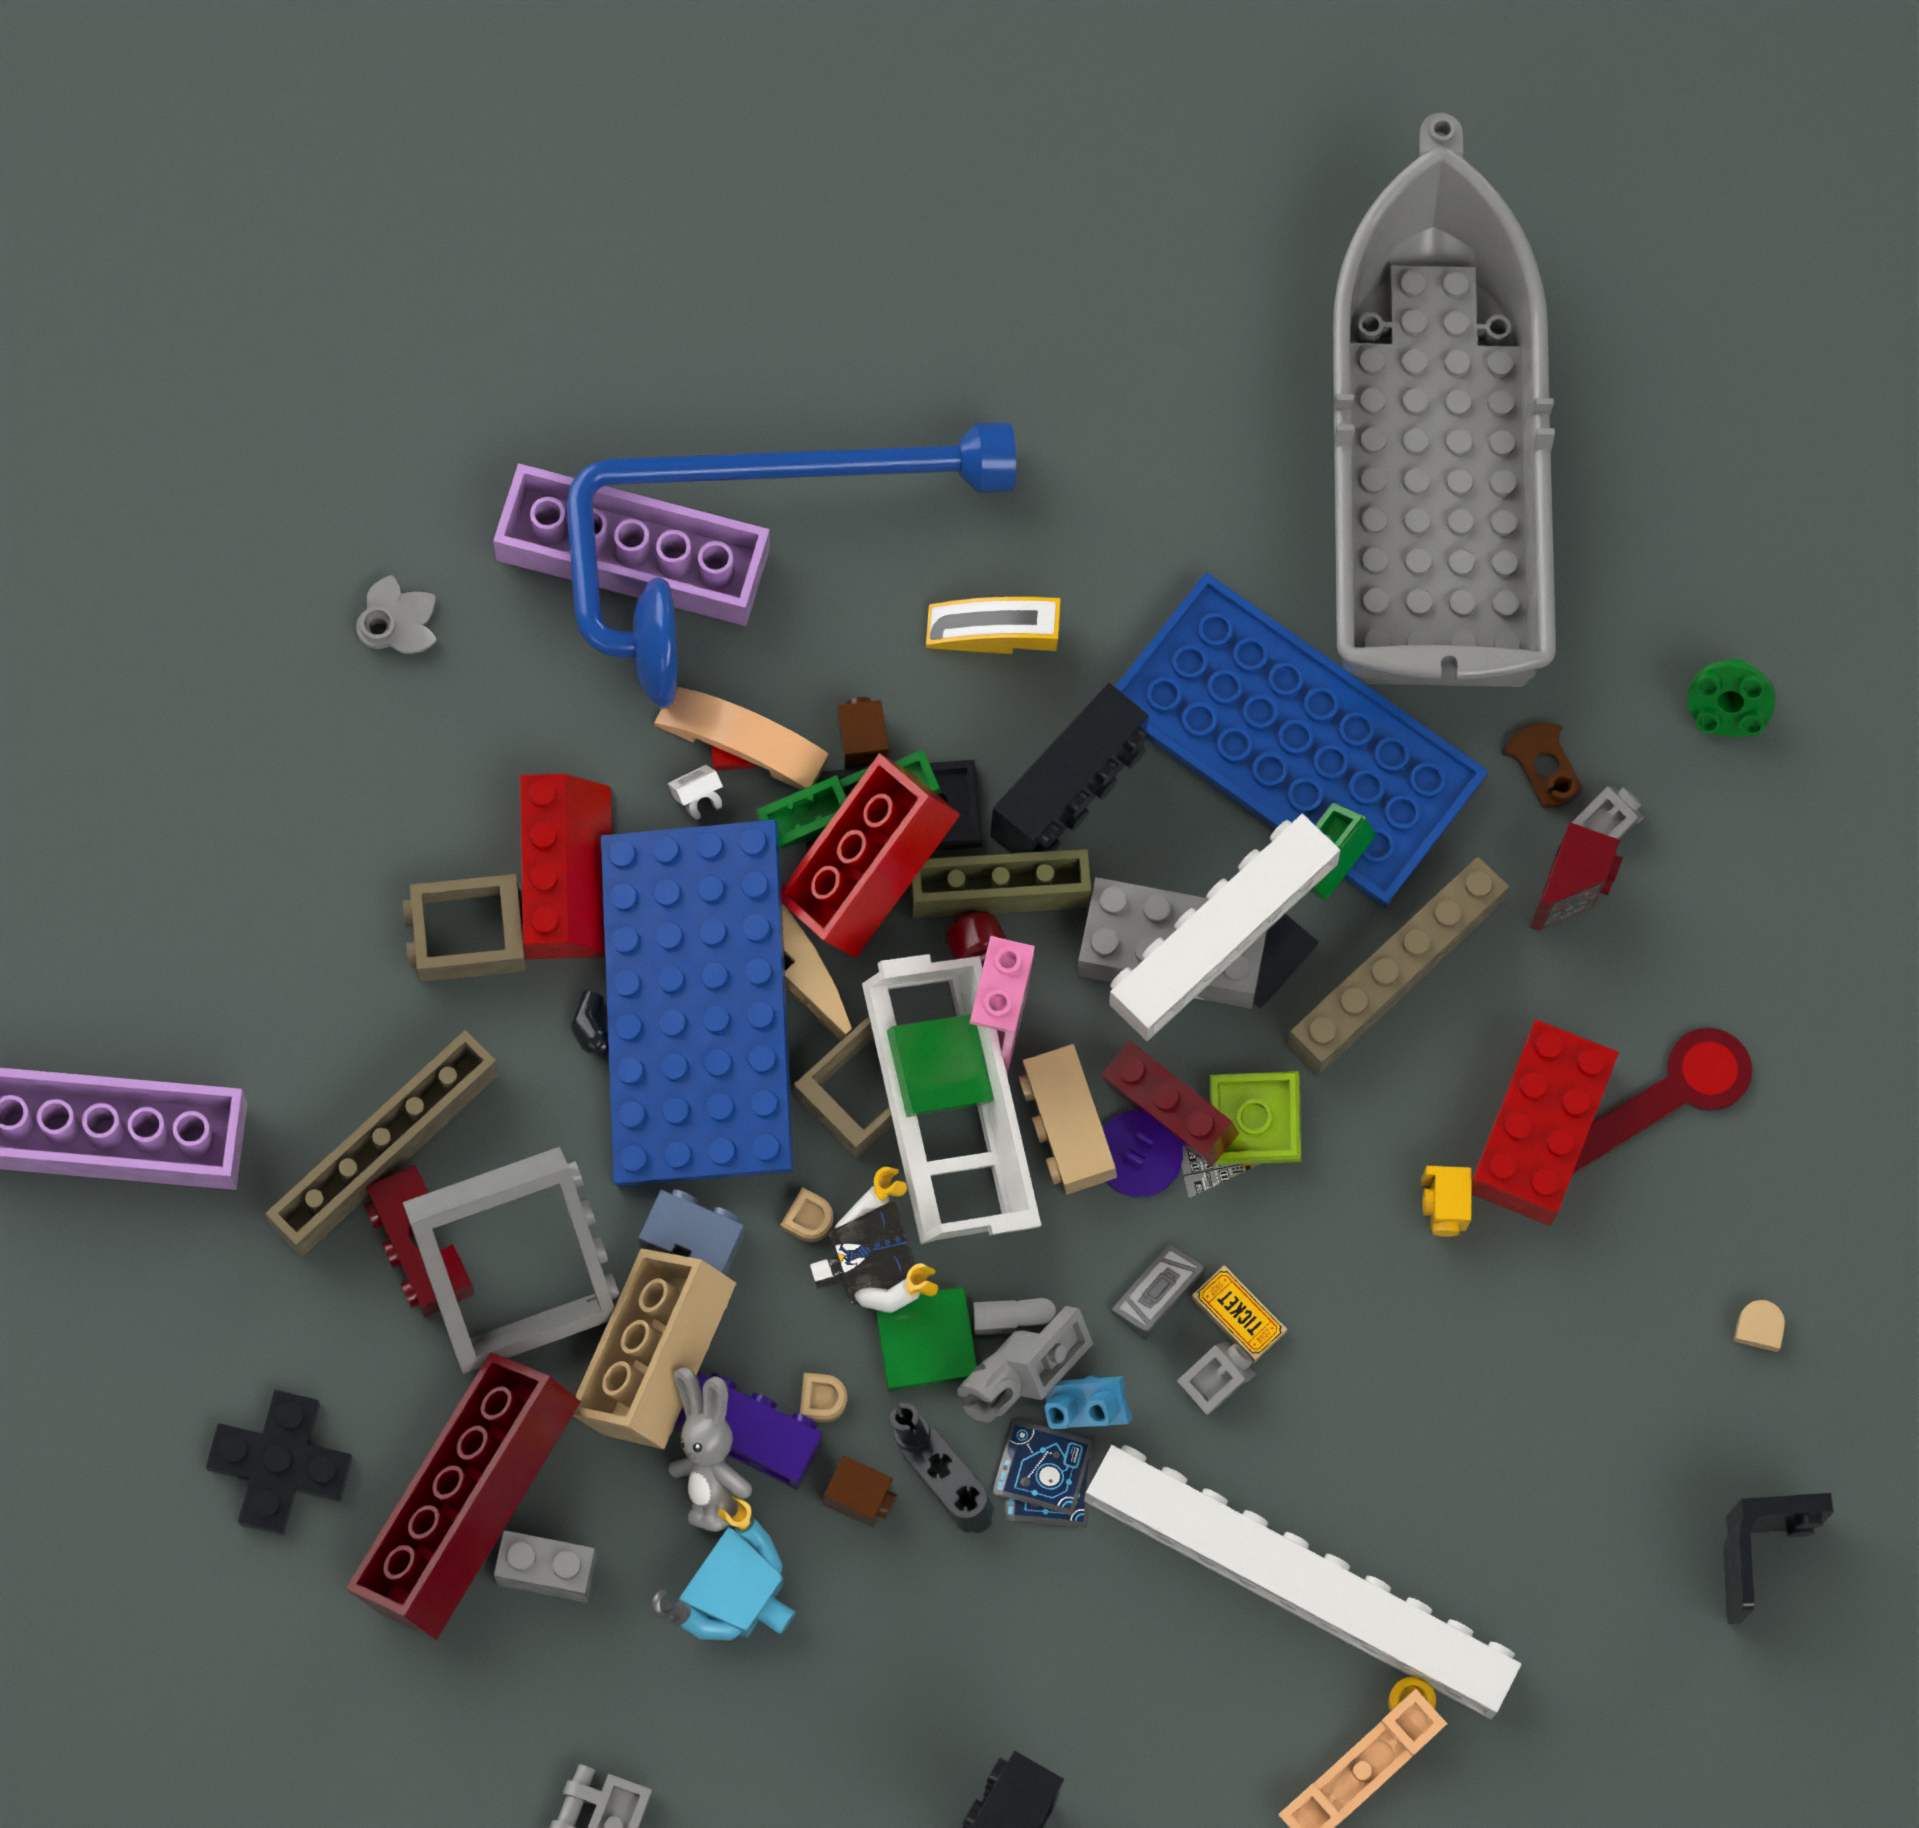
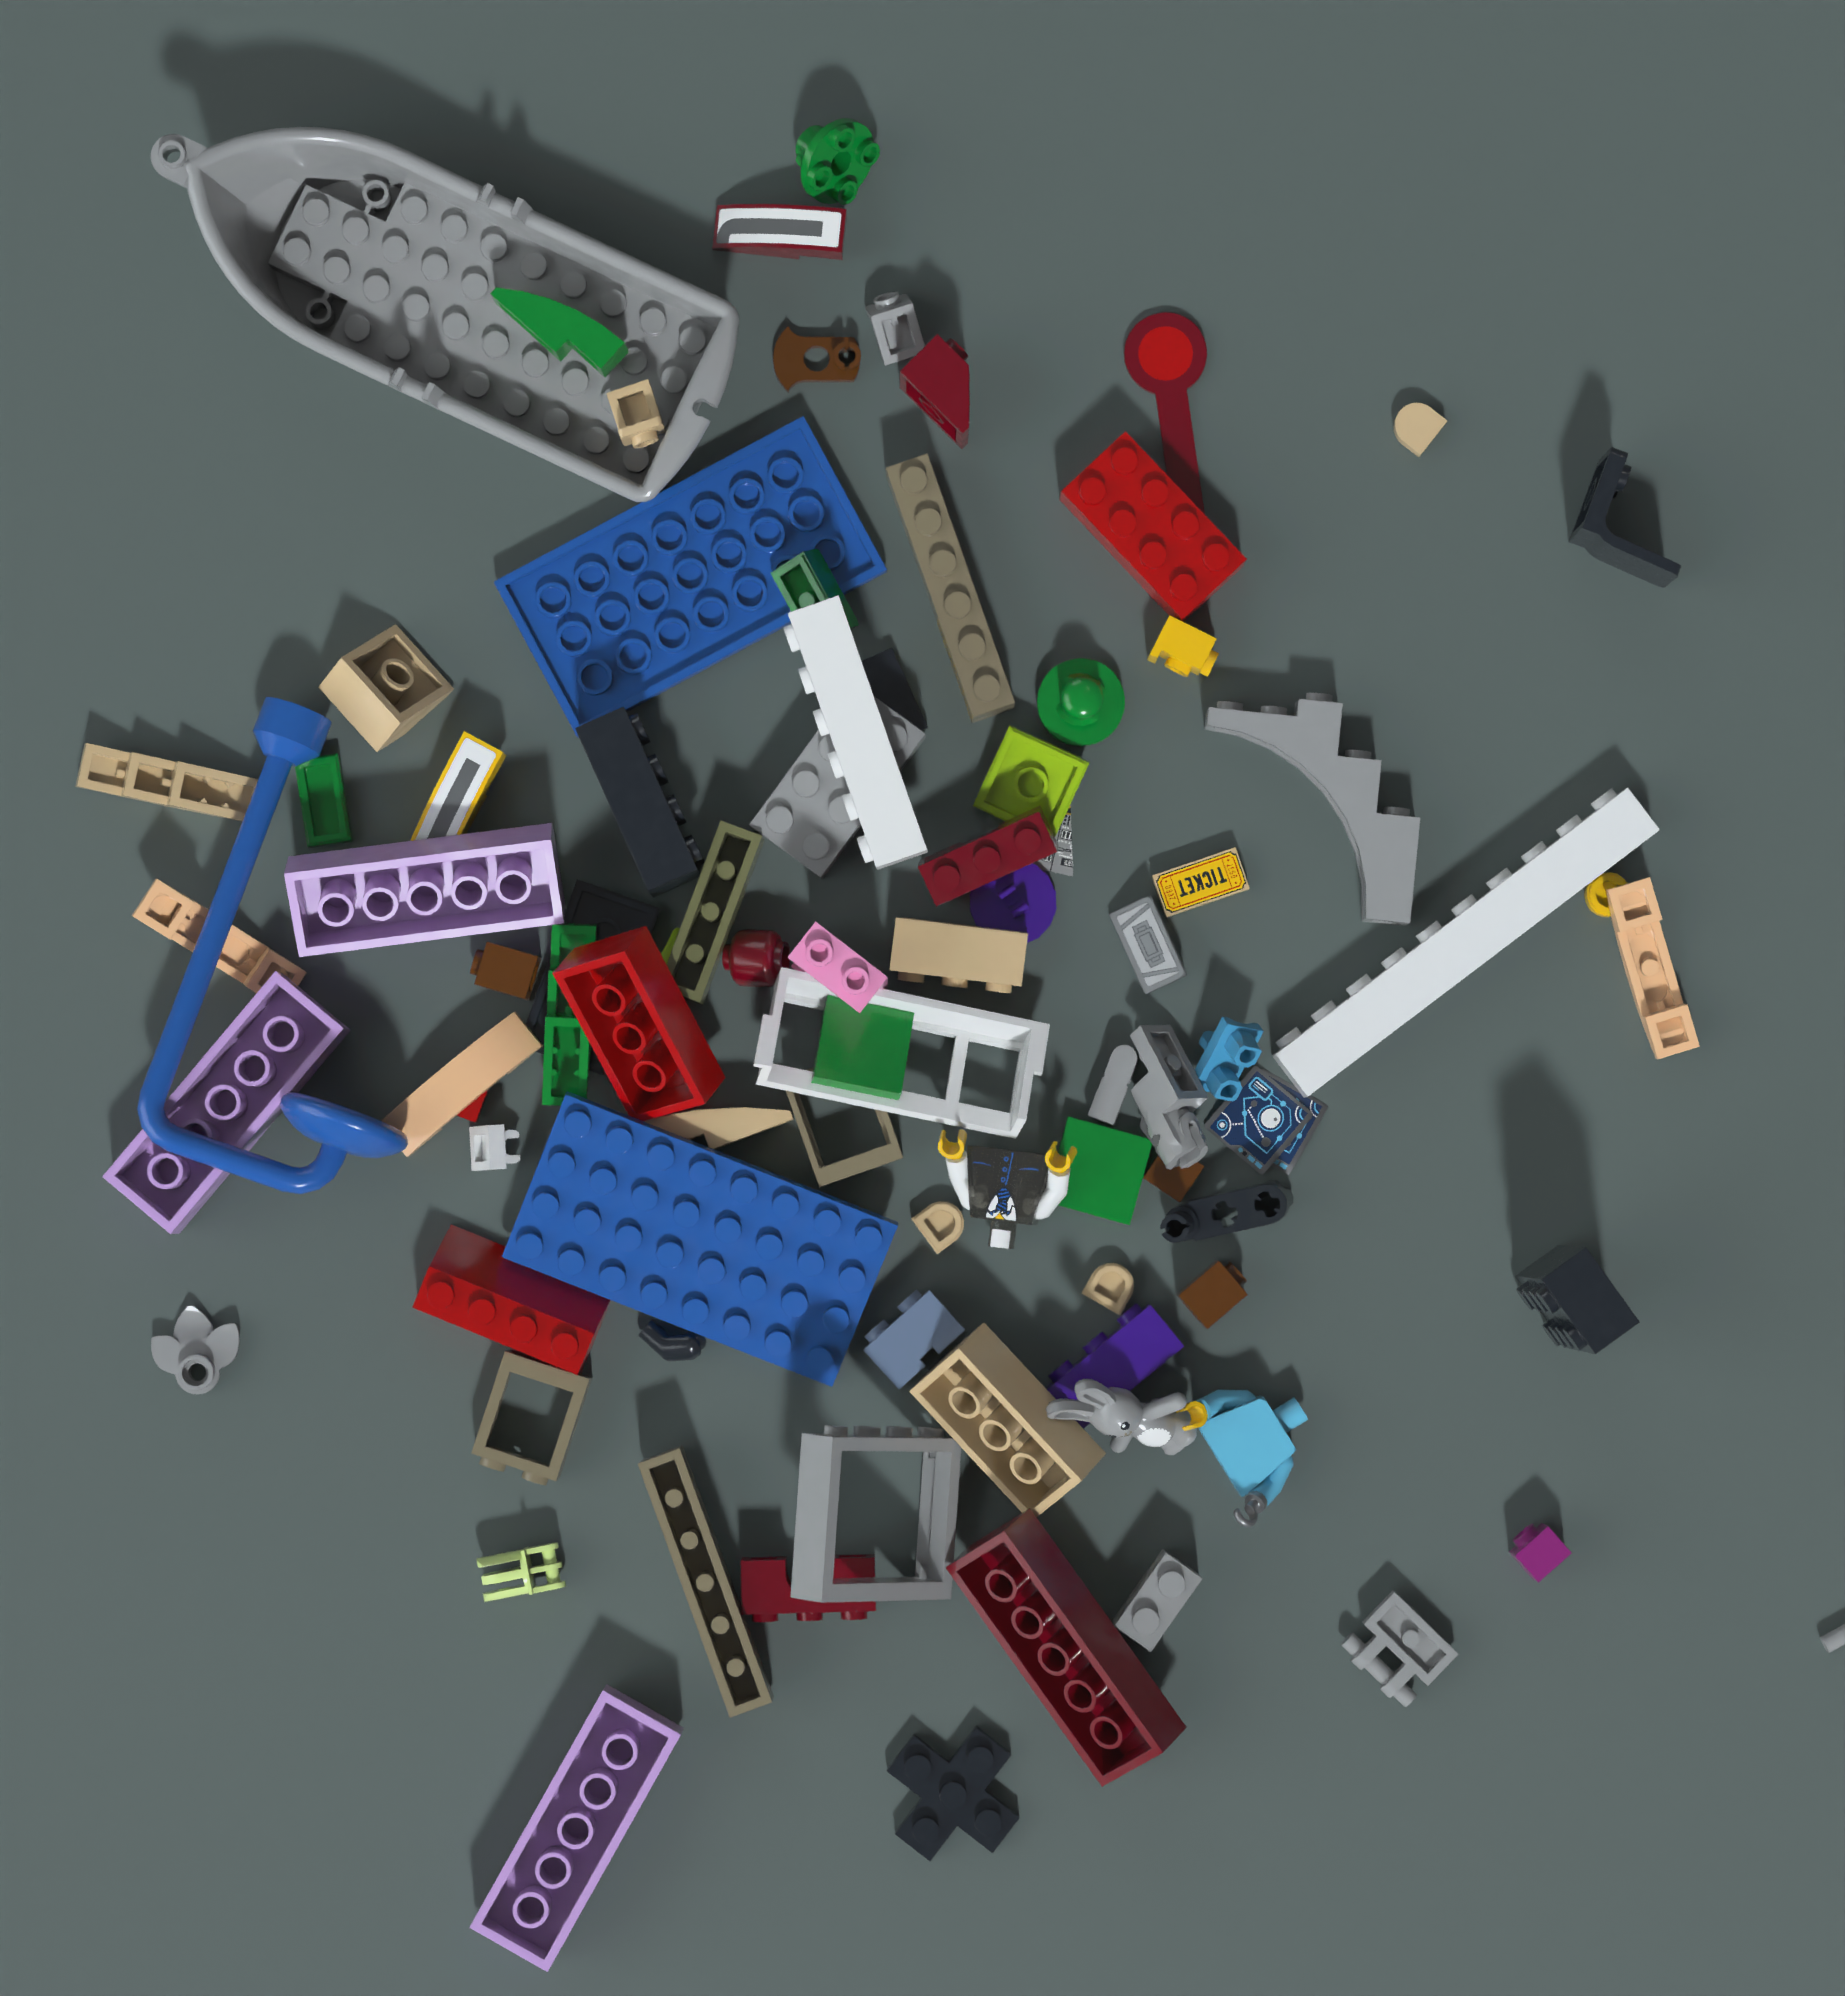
camera: 65 degrees left, 15 degrees up
(320, 983) = (524, 1571): none -> yellowish green arm
(771, 499) = (182, 920): none -> light nougat slope
(892, 374) = (165, 782): none -> tan slope
(902, 628) = (425, 889): none -> lavender brick
(940, 517) = (323, 801): none -> green tile
(949, 1411) = (1173, 1181): none -> reddish brown tile
(1067, 522) = (385, 687): none -> tan slope
(1217, 1375) = (1250, 928): light grey bracket -> none
(1352, 1131) = (1080, 702): none -> green plate
(1415, 617) = (636, 414): none -> tan bracket
(1420, 1353) = (1309, 740): none -> light grey arch
(1459, 524) = (562, 328): none -> green slope
(1645, 683) = (780, 230): none -> slope

